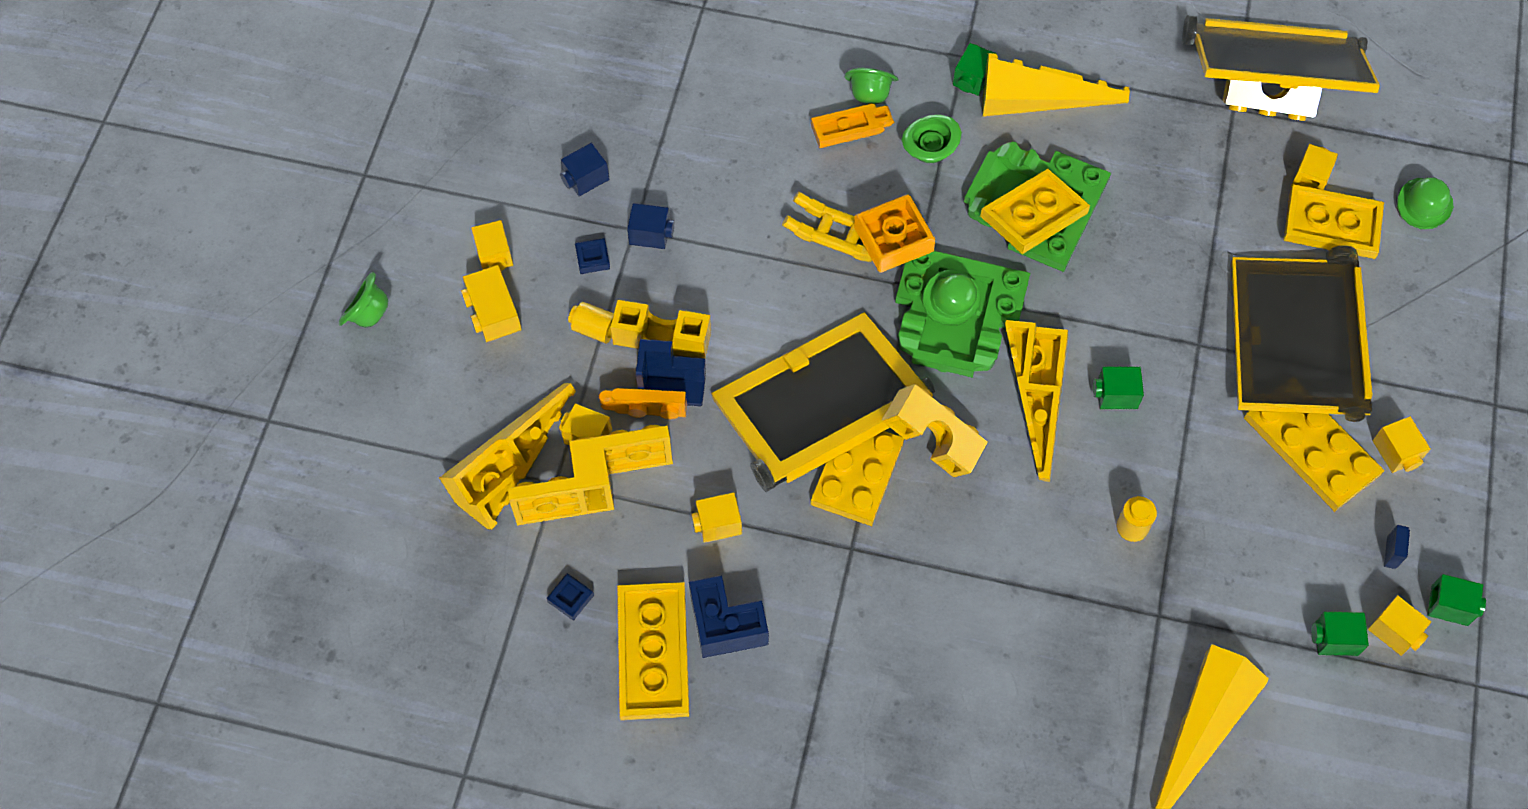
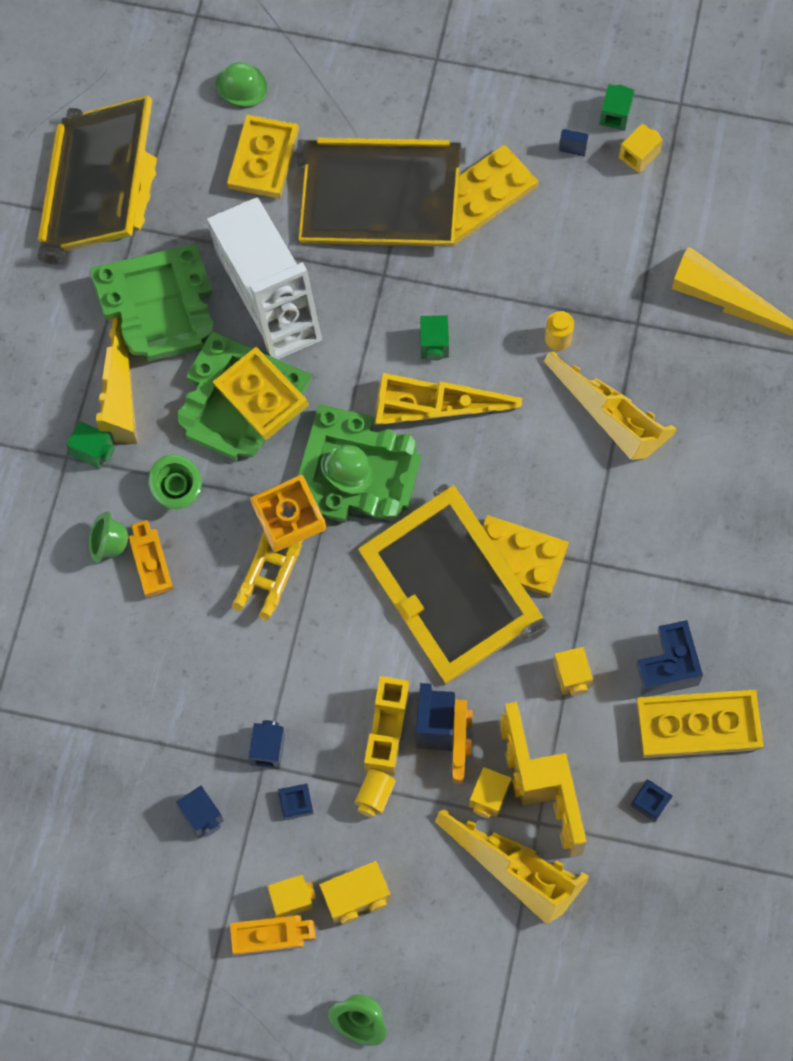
camera: 90 degrees left, 5 degrees up
(457, 232) = (270, 935): none -> light orange hinge
(956, 442) = (485, 484): yellow arch -> none
(1022, 591) = (623, 421): none -> yellow wedge
(1143, 123) = (157, 301): none -> bright green piece
(1171, 208) = (266, 278): none -> white brick
(1315, 167) = (210, 165): yellow brick -> none
(1340, 633) = (650, 190): green brick -> none
(1401, 445) = (482, 128): yellow brick -> none

